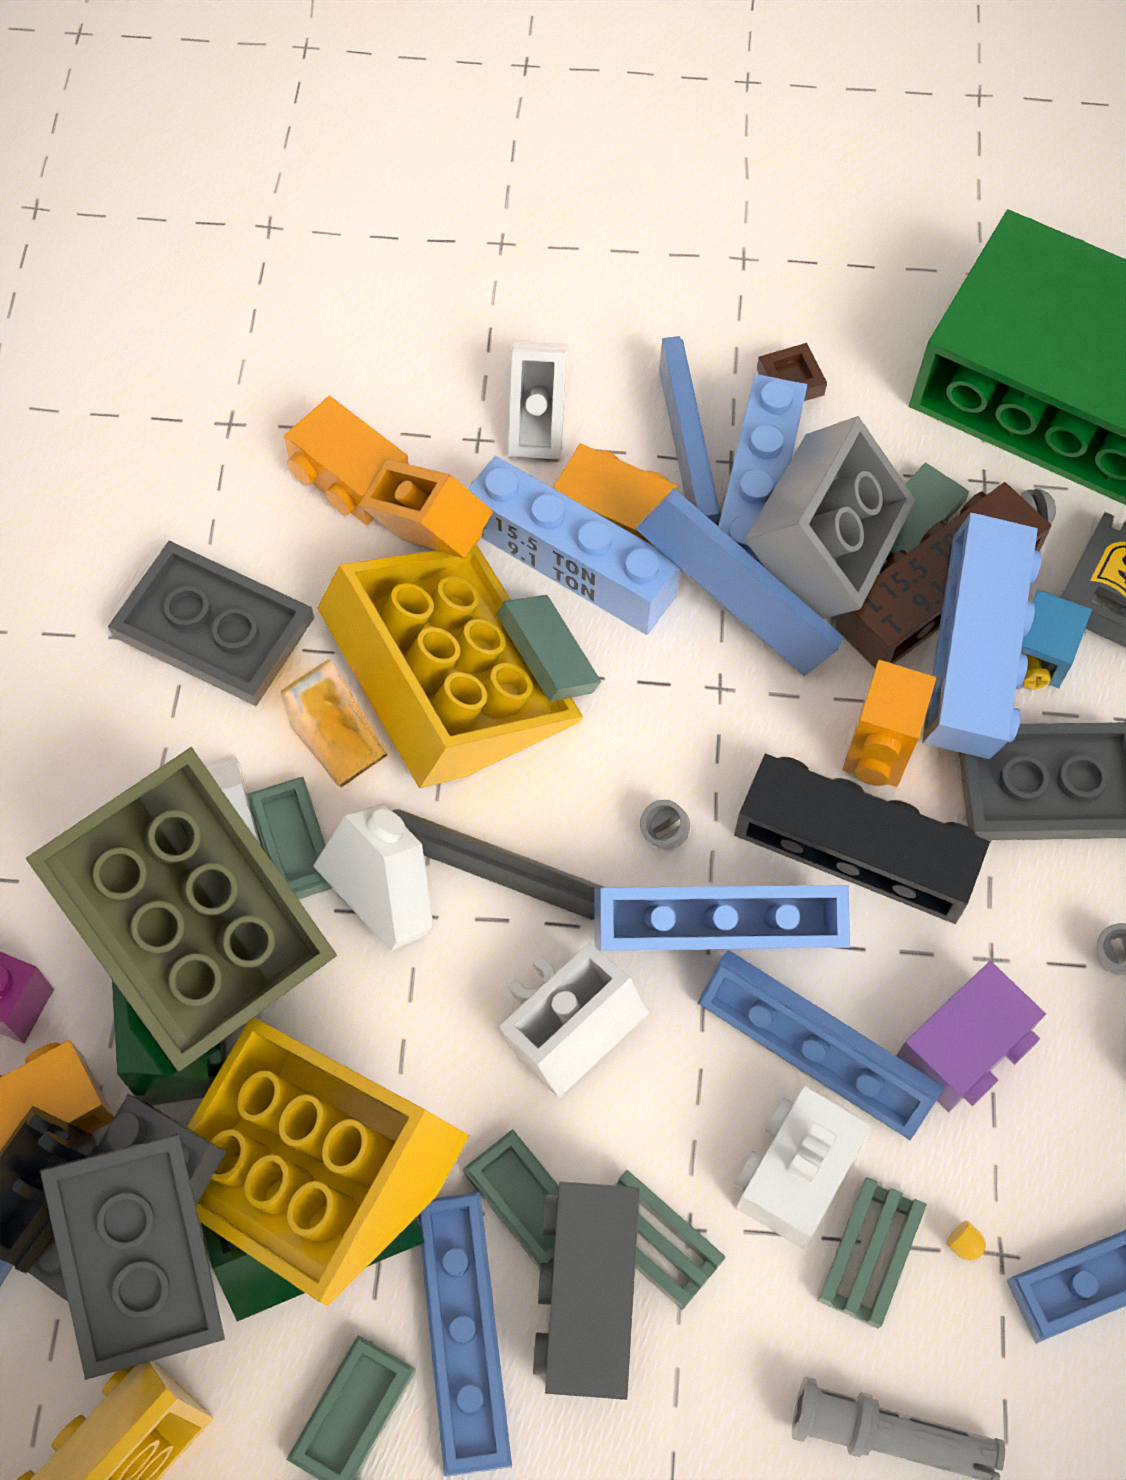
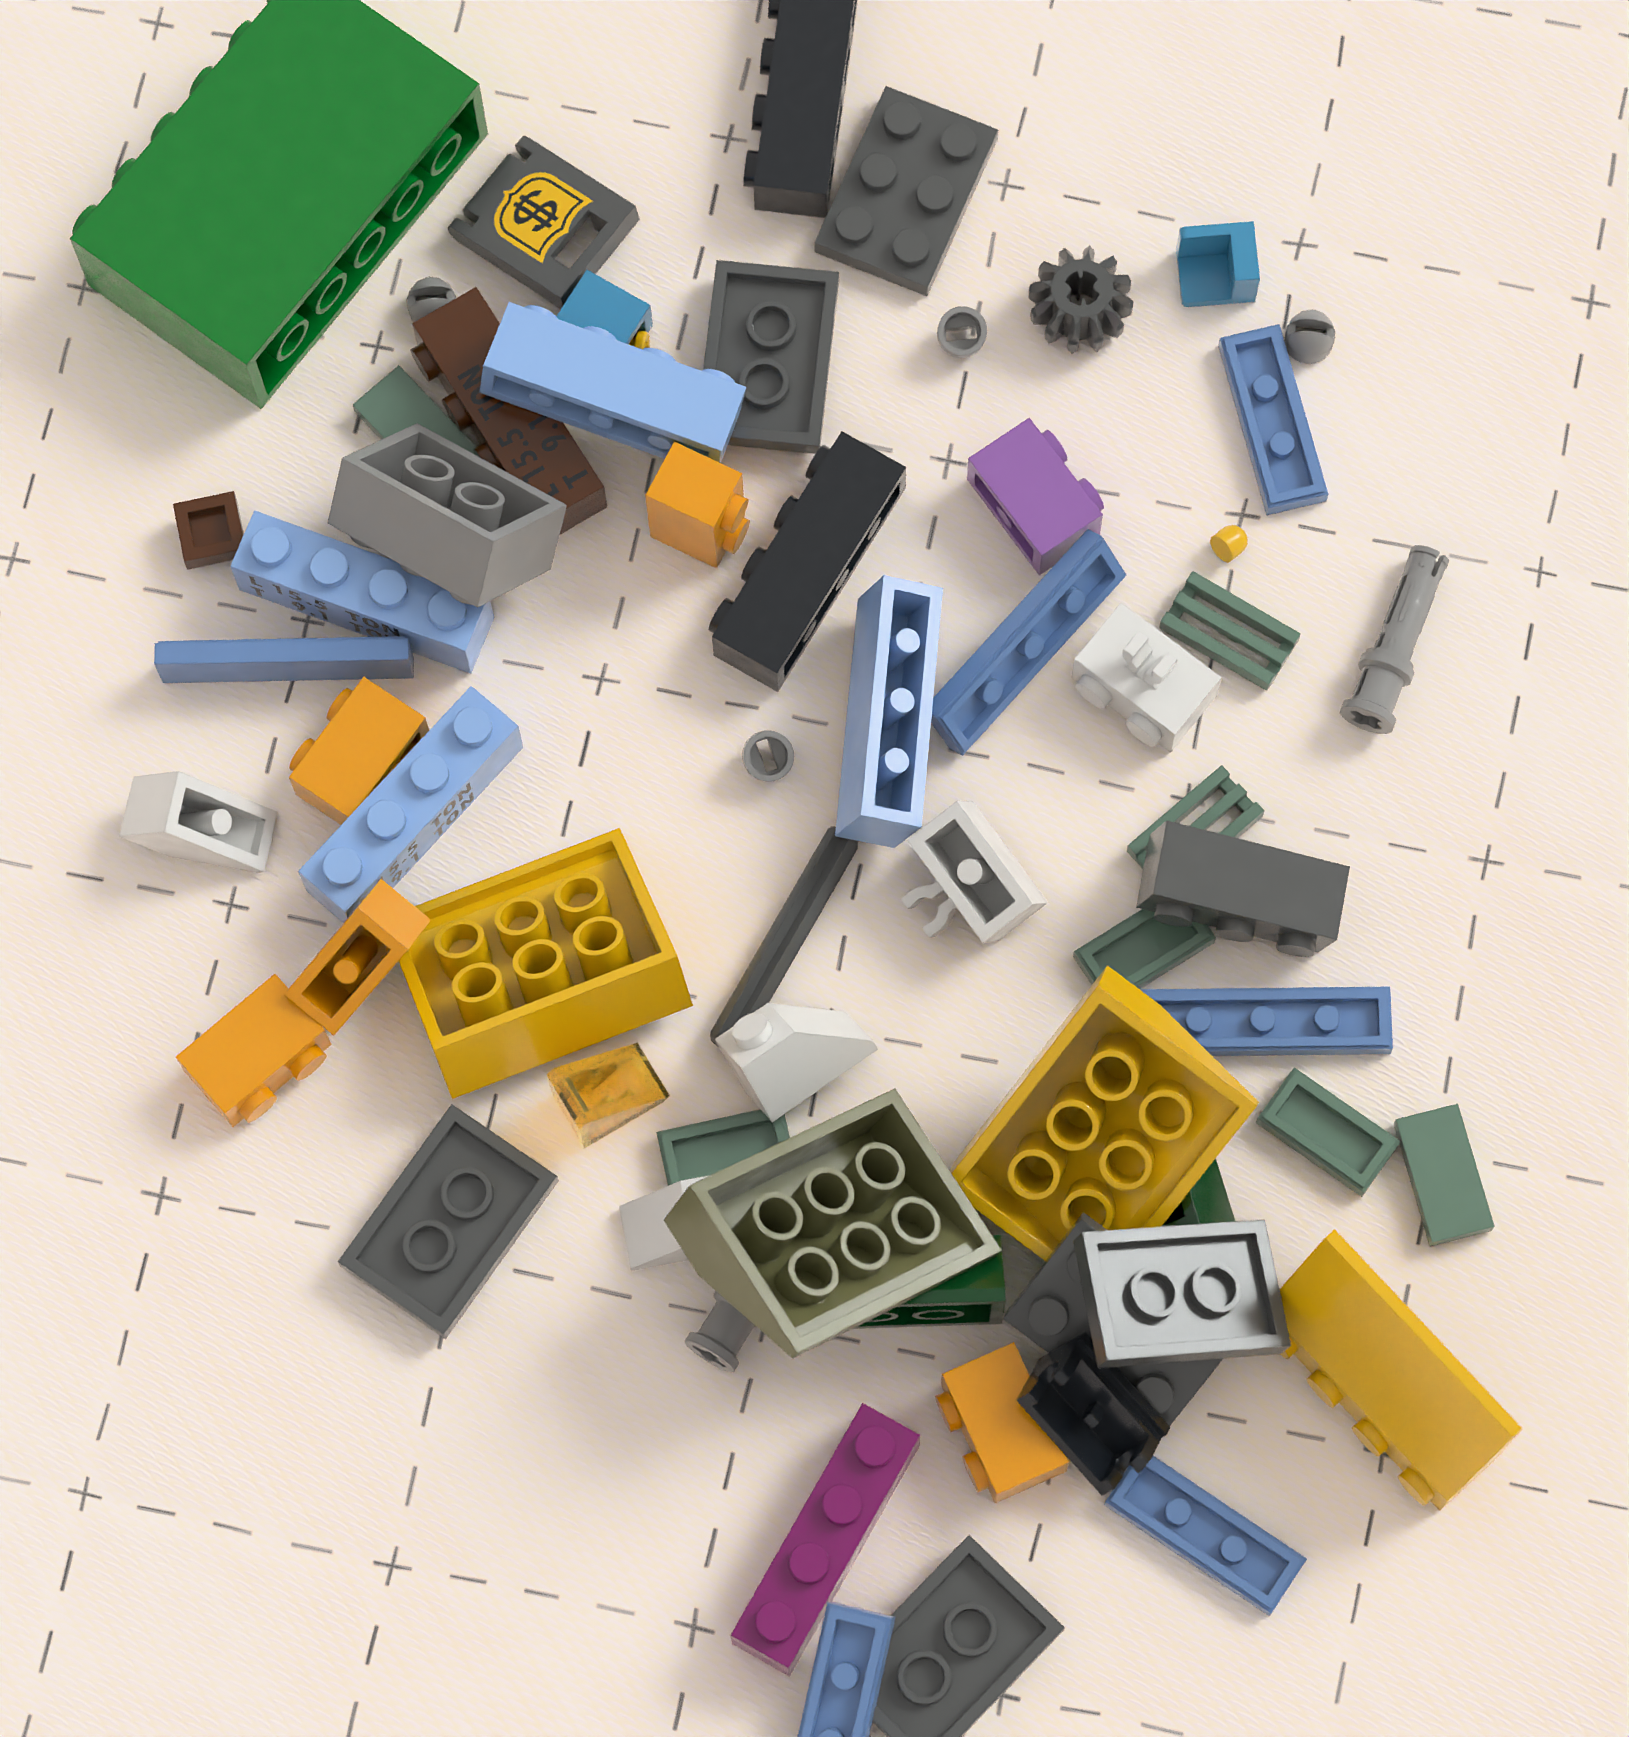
camera: 80 degrees left, 10 degrees up
(548, 647) = (535, 851): sand green tile -> none
(739, 582) = (507, 627): medium blue tile -> none

